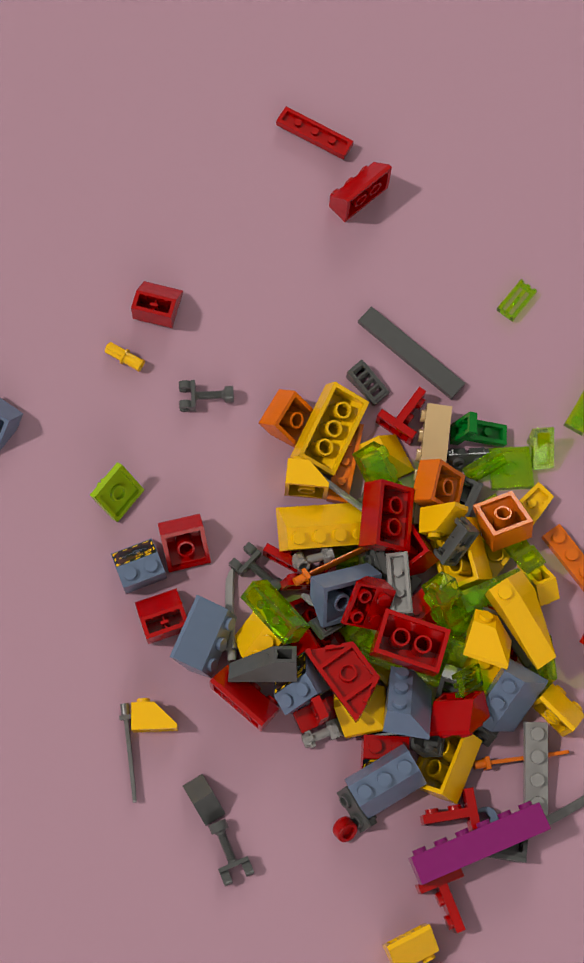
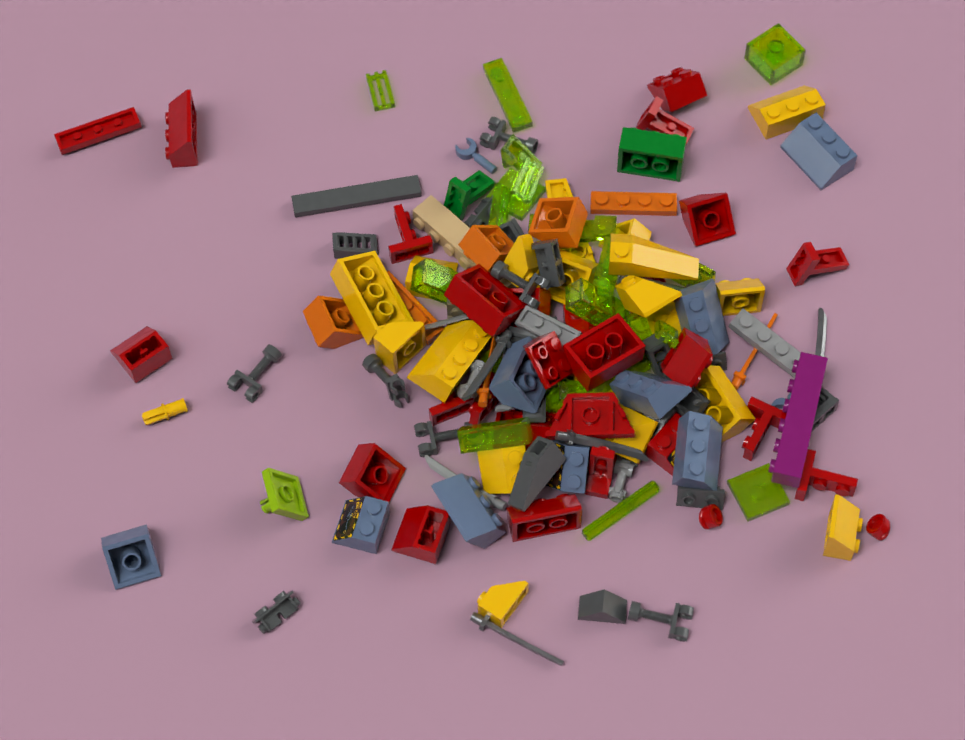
camera: 45 degrees left, 10 degrees down
(32, 557) = (268, 616): none -> dark grey hinge
(266, 505) = (372, 364): none -> dark grey bar
(297, 752) = (620, 510): none -> clear neon green axle
(314, 671) = (571, 437): none -> flat silver sword
(363, 557) = (502, 342): none -> dark grey sword
(393, 850) = (757, 493): none -> clear neon green tile
(420, 509) = (501, 271): none -> dark grey bar
(518, 417) = (470, 153): none -> sand blue piece
(529, 475) = (533, 167): none -> clear neon green tile
(560, 447) = (499, 128): none -> dark grey bar

